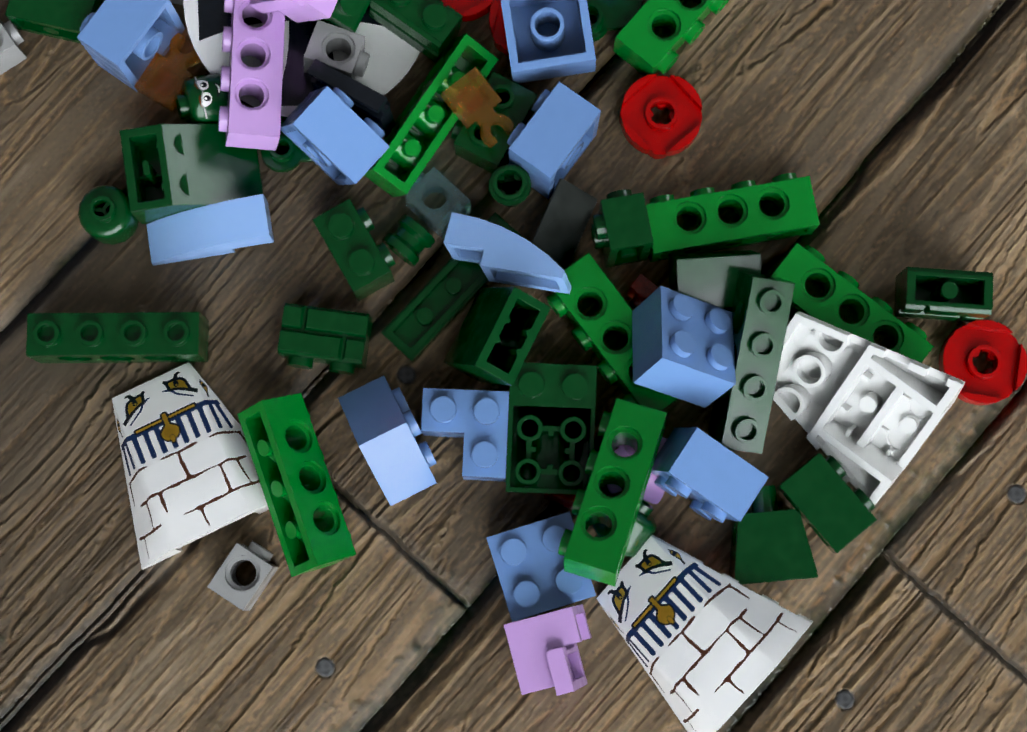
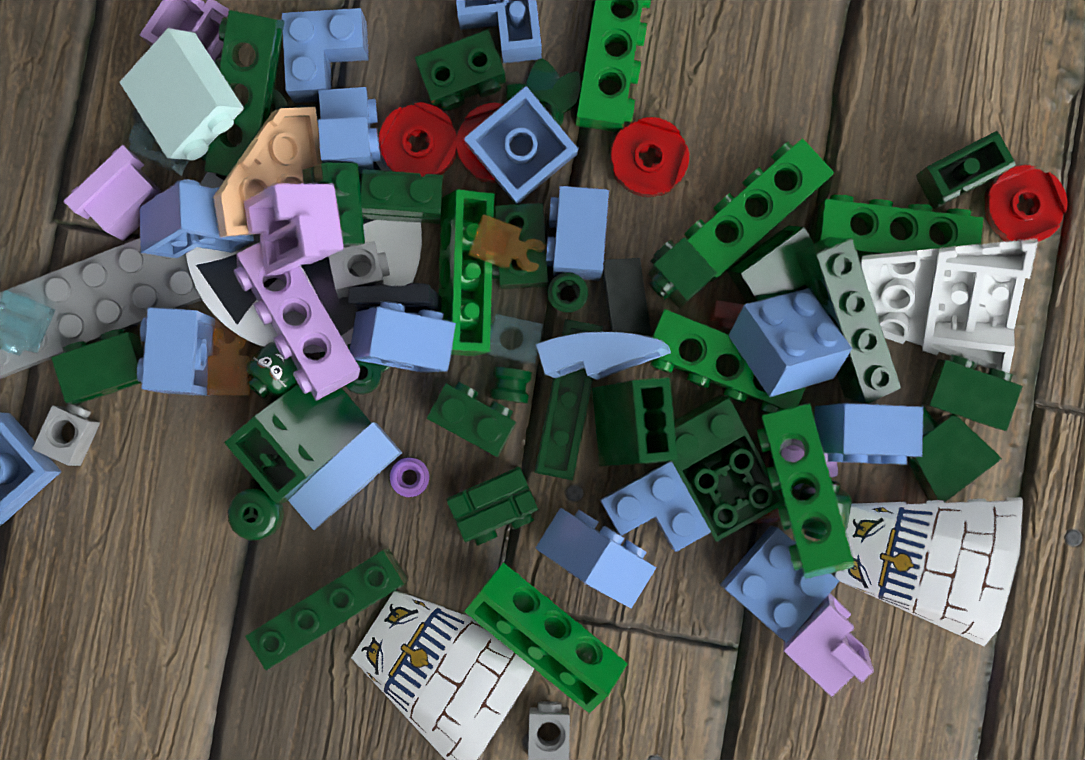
camera: 30 degrees left, 5 degrees up
(261, 257) = (398, 483): none -> medium lavender plate

